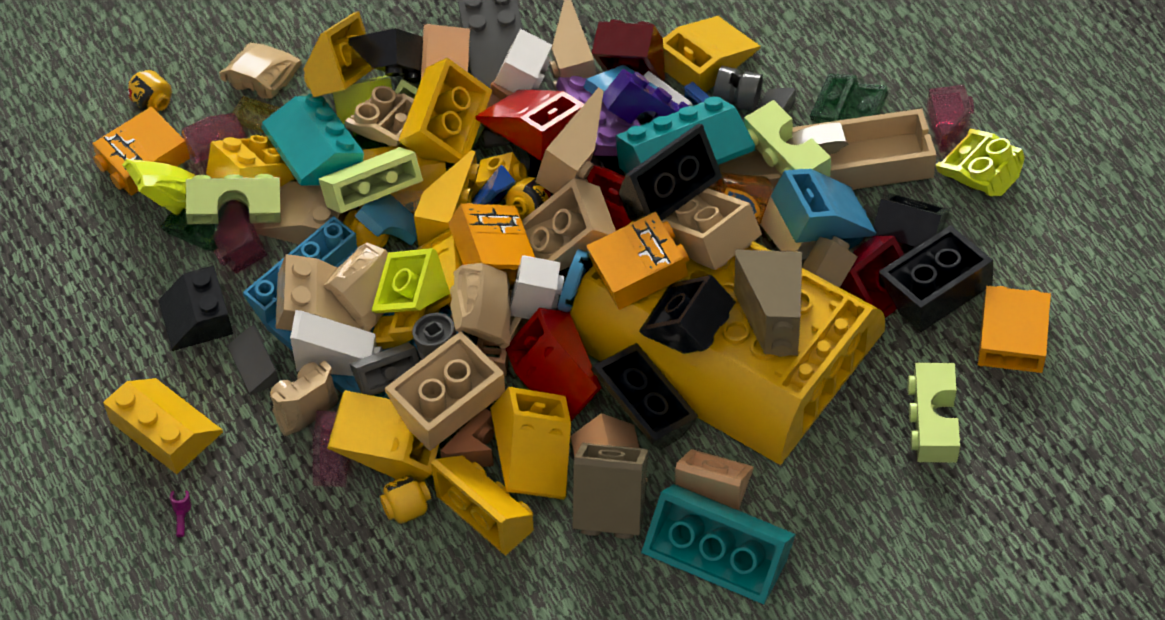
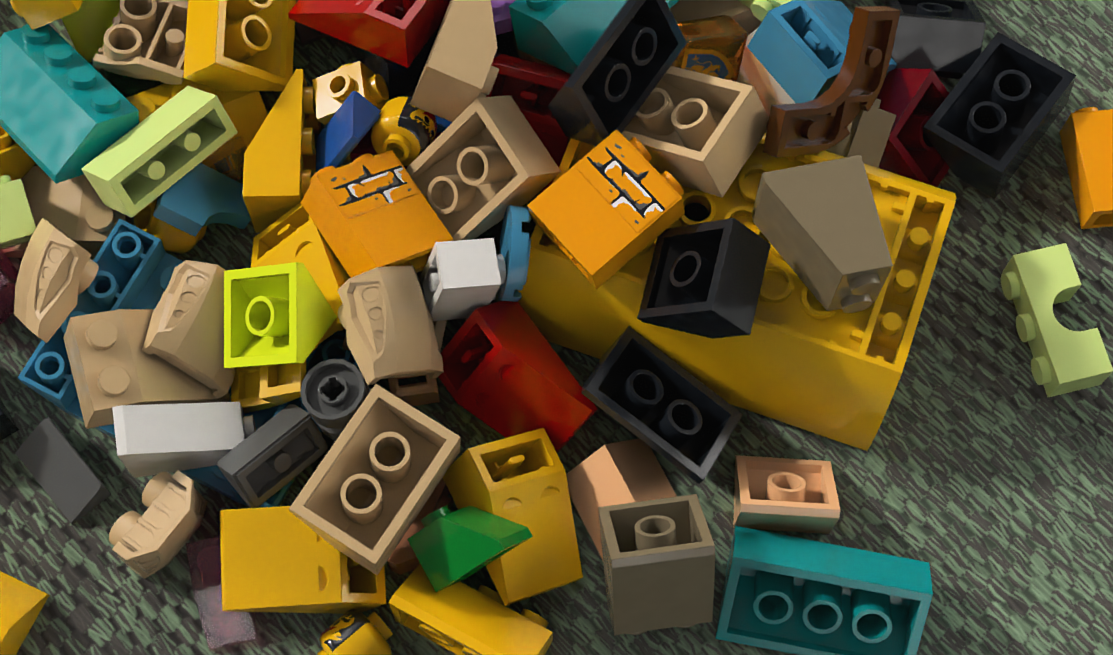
camera: 20 degrees left, 15 degrees up
(281, 236) = (51, 279): none -> tan slope
(488, 444) = (463, 543): none -> green slope
(821, 231) = (824, 121): none -> reddish brown plate

